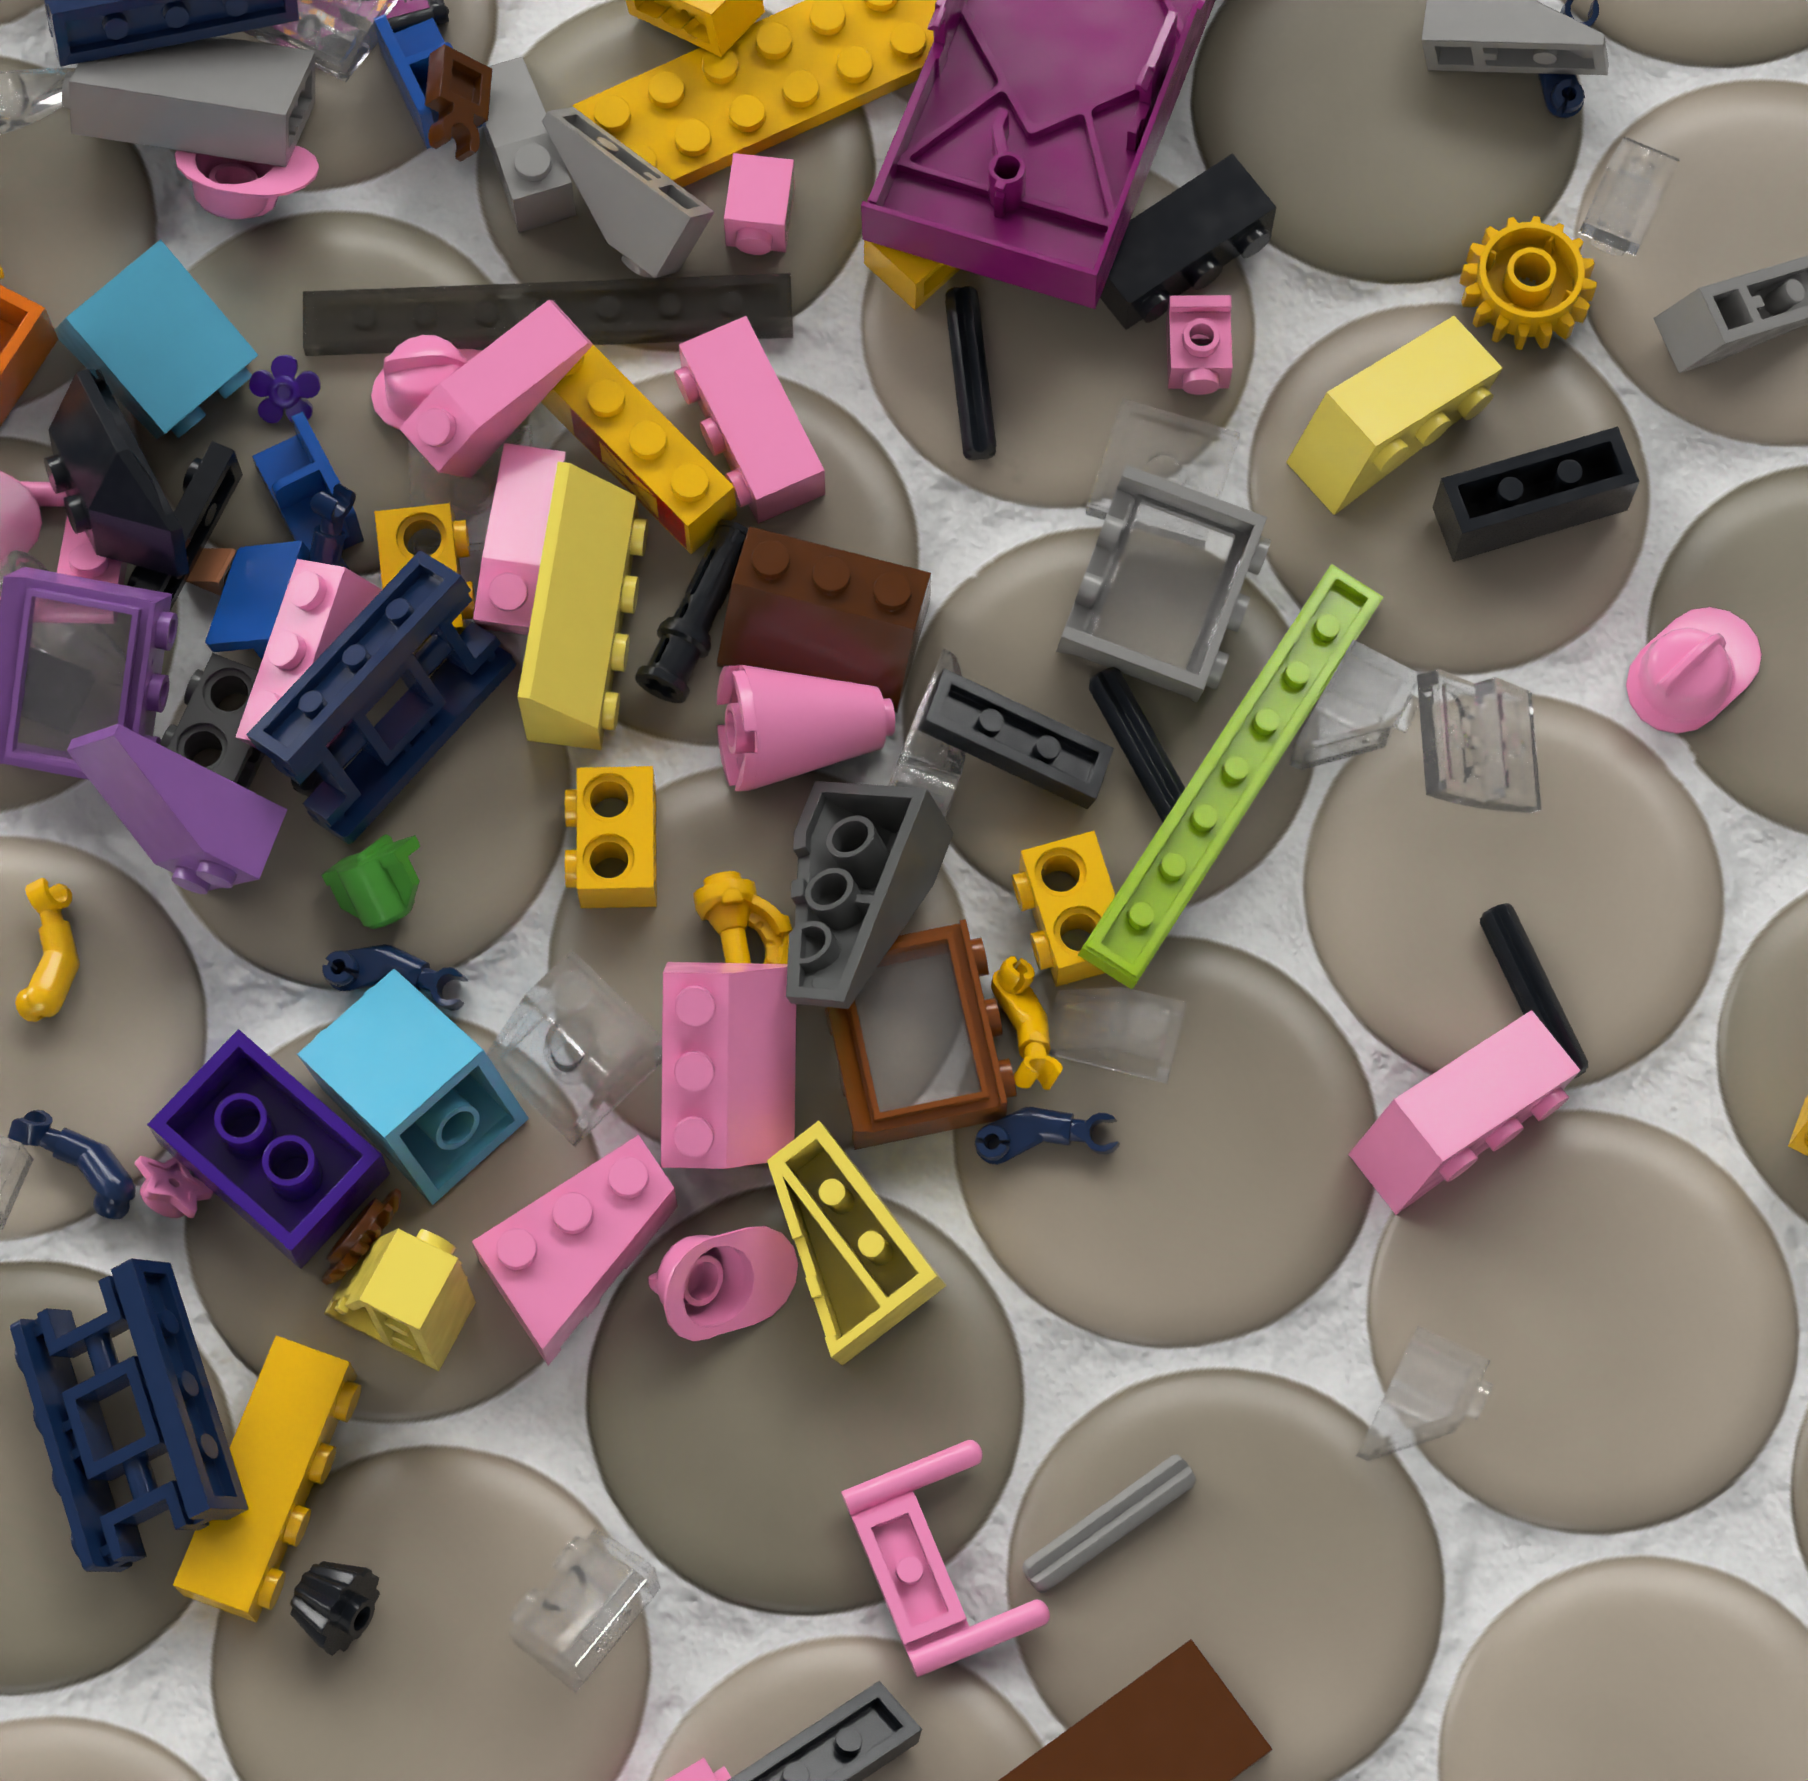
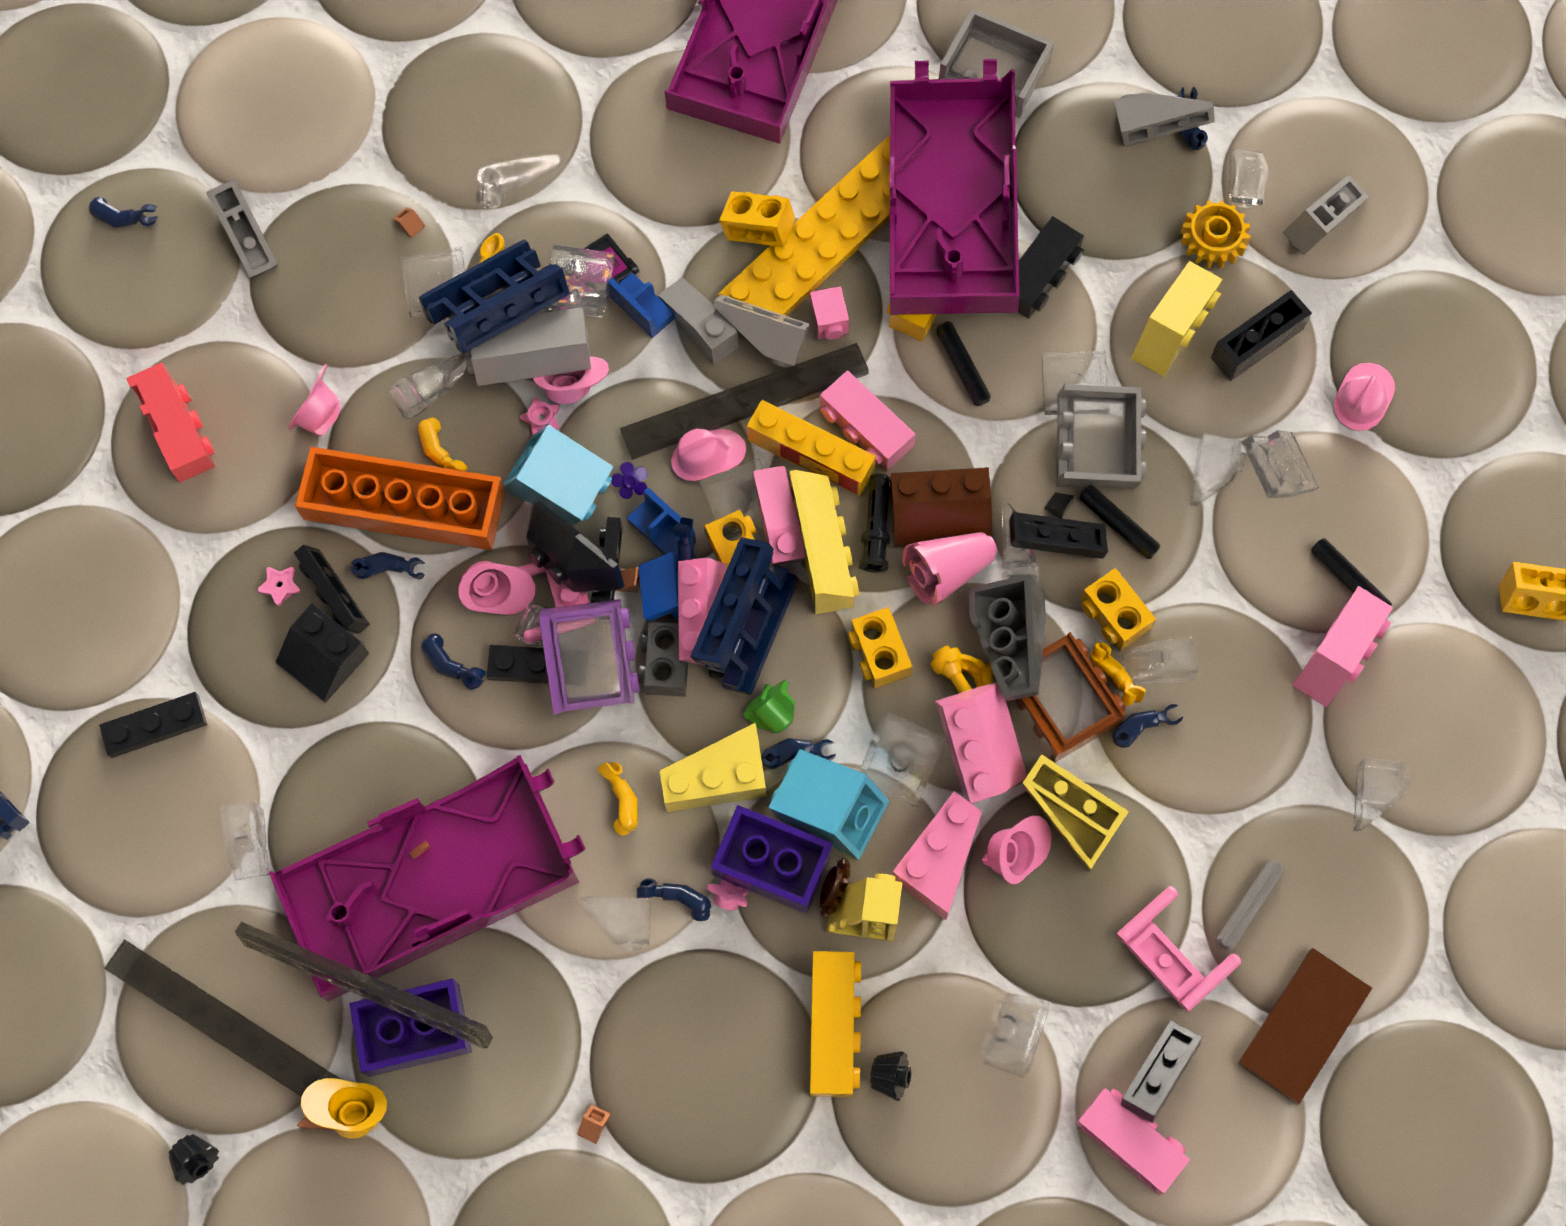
camera: 15 degrees left, 0 degrees up
(172, 1405) = (773, 998): dark blue fence -> none
(174, 211) = (541, 408): none -> bright pink plate
(179, 811) = (667, 705): medium lavender slope -> none
(232, 964) = (717, 774): none -> light yellow wedge
(461, 94) = (664, 305): reddish brown plate -> none
(495, 391) = (742, 446): bright pink slope -> none
(1048, 685) = (1059, 504): none -> black piece
(1193, 322) = (1065, 324): bright pink brick -> none
(1229, 778) = (1169, 521): lime tile -> none

